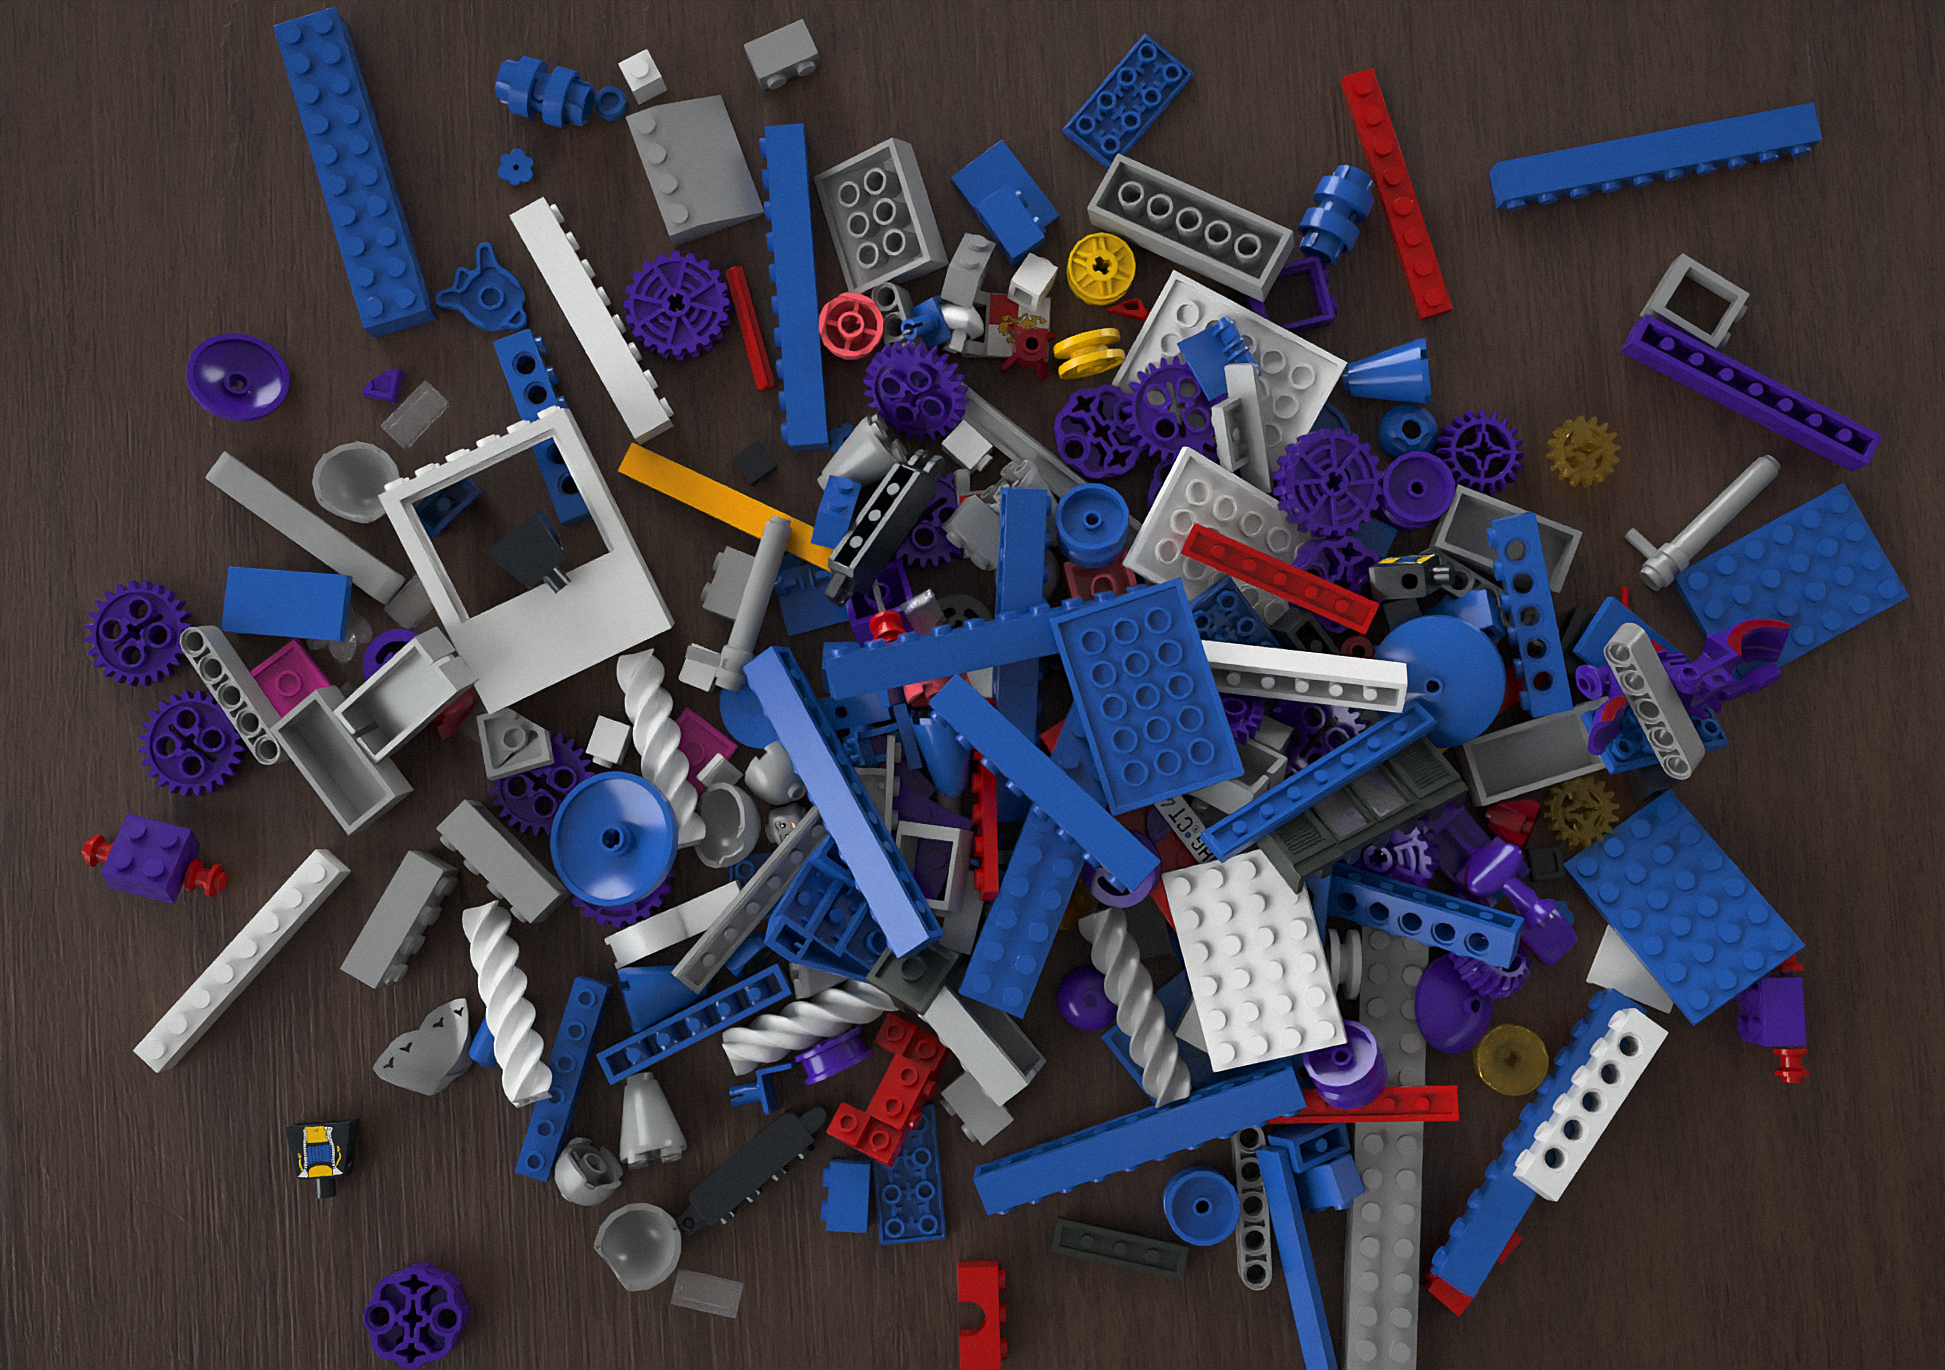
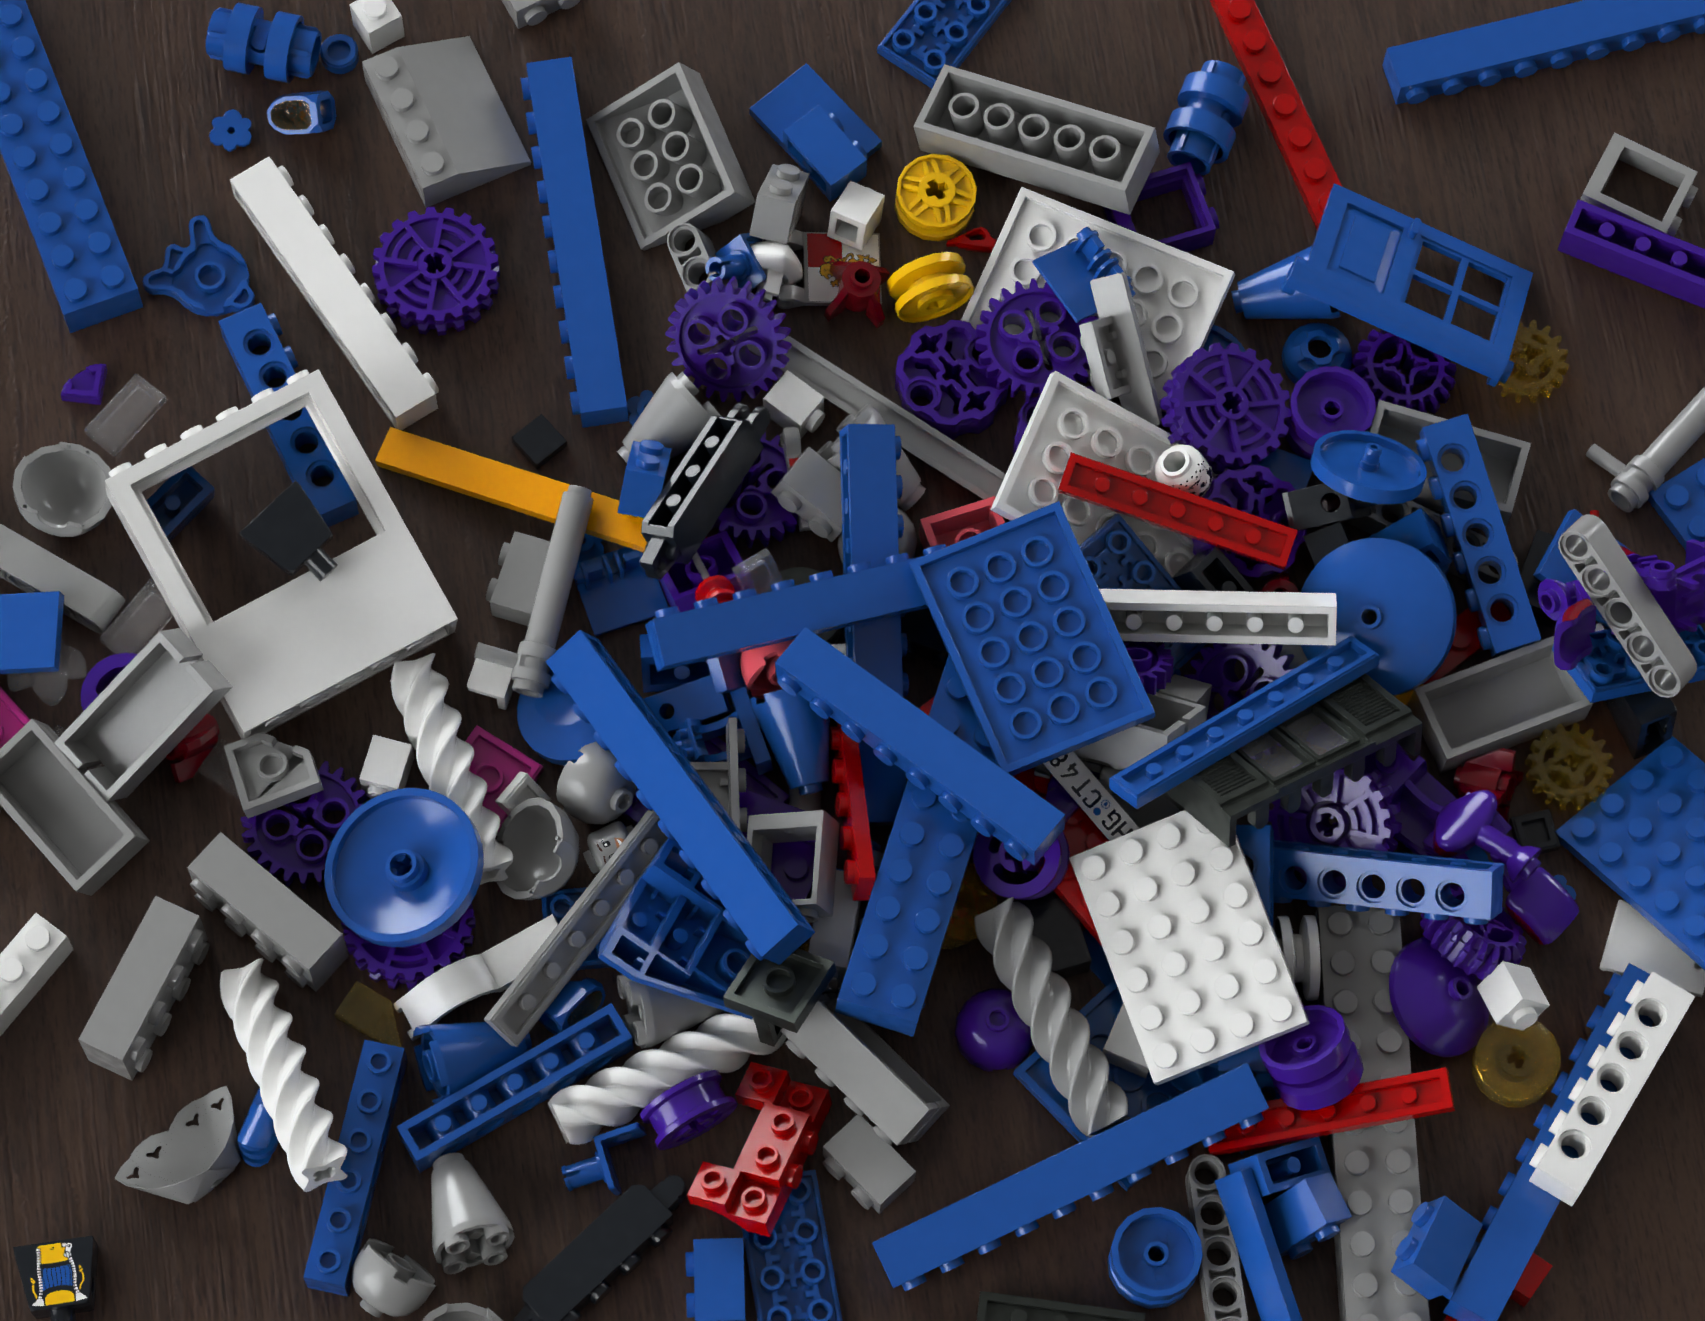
camera: 10 degrees left, 15 degrees down
(576, 157) = (302, 113): none -> rock
(586, 947) = (369, 1014): none -> clear yellow tile
(750, 328) = (523, 291): red axle -> none
(851, 326) = (646, 275): coral cylinder -> none
(1092, 525) = (951, 471): blue wheel -> none
(1287, 541) = (1184, 469): none -> white head
(1431, 1226) = (1436, 1247): none -> blue brick
(1445, 553) = (1368, 467): none -> blue piece
(1458, 368) = (1365, 268): none -> blue door
(1516, 1016) = (1513, 996): none -> white brick

